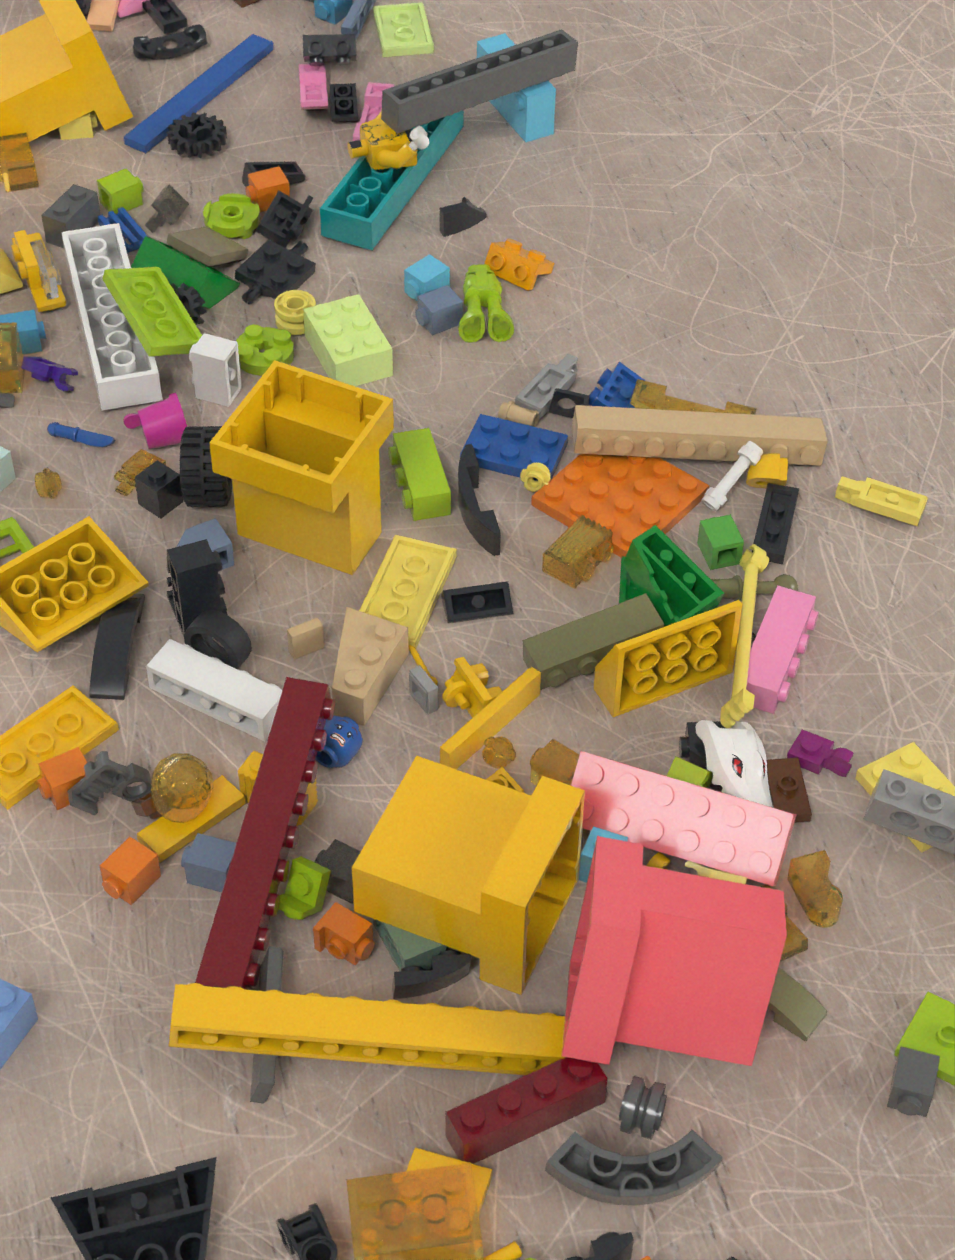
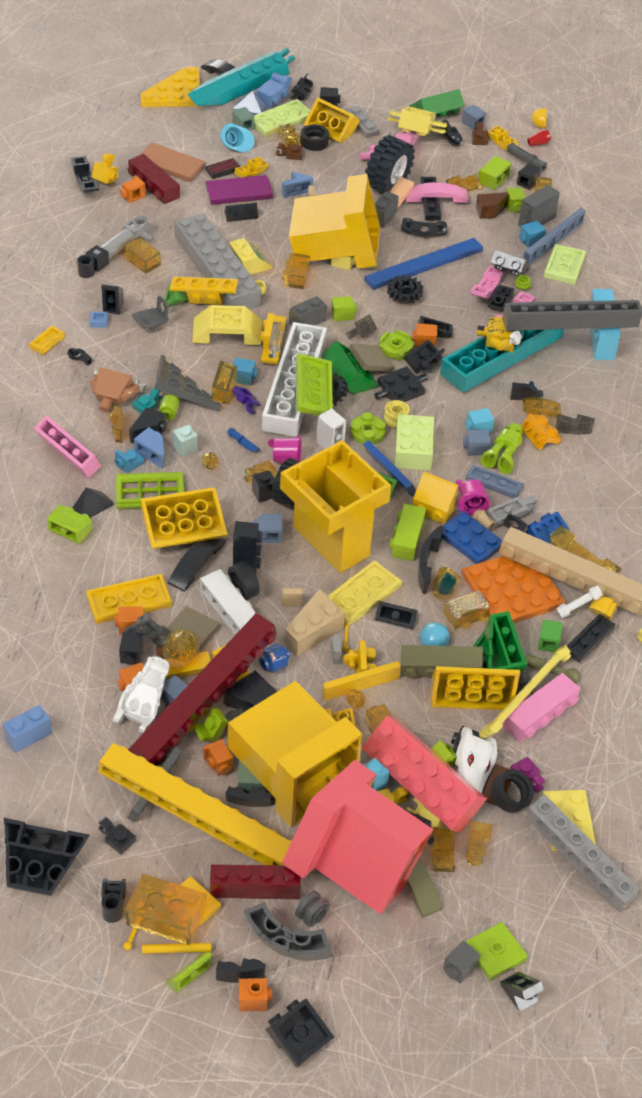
camera: 25 degrees right, 0 degrees up
(95, 822) = (131, 648): none -> black brick
(101, 26) = (386, 207): none -> dark grey brick
(123, 219) = (331, 323): blue tile -> none
(165, 737) = (193, 621): none -> dark tan tile
(165, 892) = (143, 696): none -> white animal
(255, 1141) = (117, 837): none -> black plate
(340, 812) = (248, 692): none -> black slope
(361, 71) = (523, 282): none -> lime plate
(434, 403) = (437, 497): none -> yellow slope
(483, 387) = (472, 496): none -> dark pink hat
(496, 228) = (539, 405): none -> clear yellow slope
(496, 357) = (495, 482): none -> sand blue tile
(522, 525) = (445, 582): none -> rock
(538, 471) = (470, 558): light yellow plate -> none
(554, 608) = (435, 635): none -> medium azure hair
(563, 238) = (575, 426): none -> clear smoke slope
(830, 776) = (502, 799): none -> black tyre

